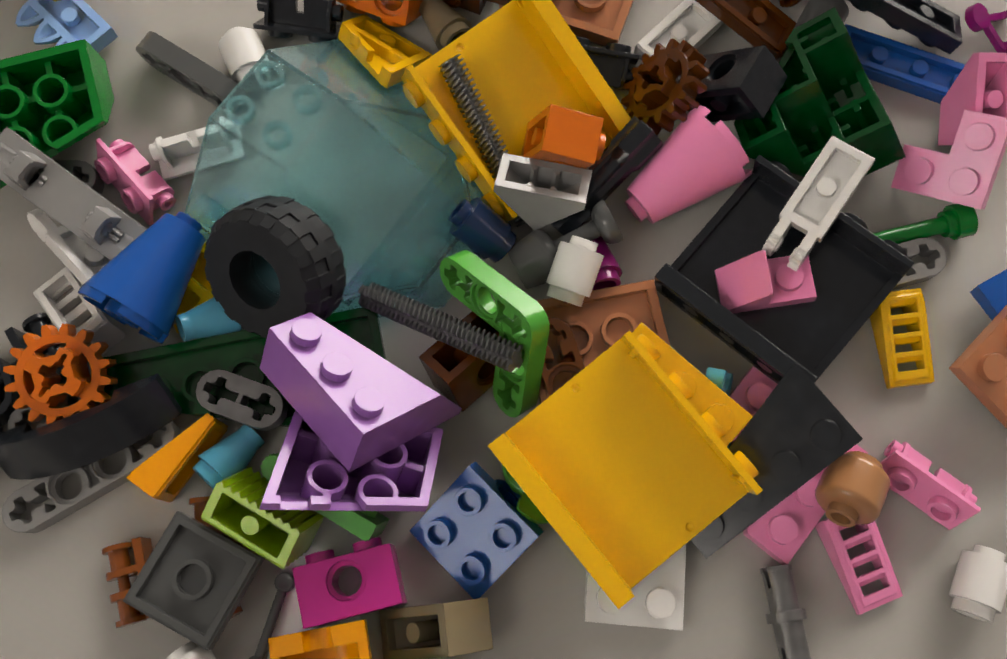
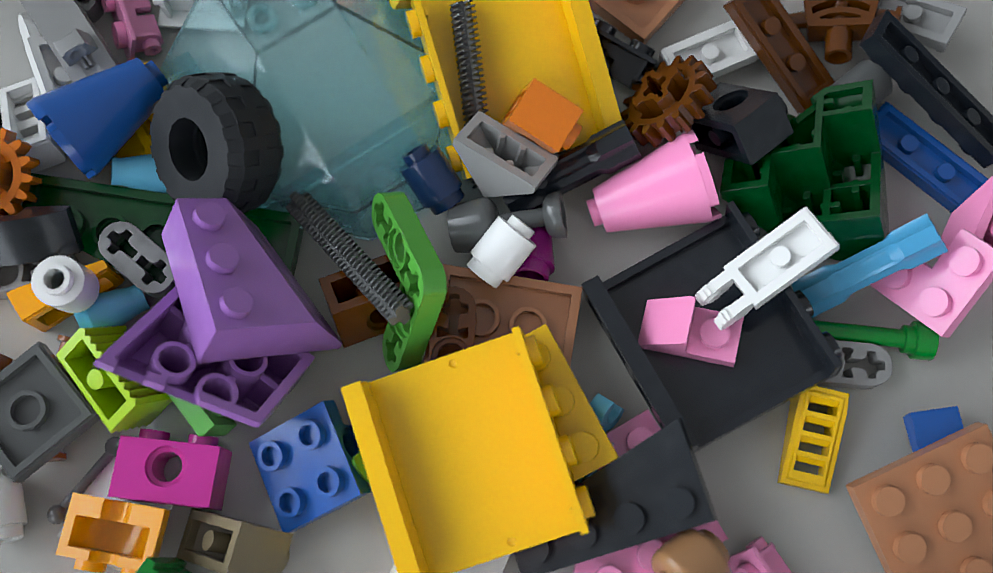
camera: 20 degrees right, 0 degrees up
(201, 452) = (65, 284): none -> white brick
(919, 146) = (899, 250): none -> dark azure axle

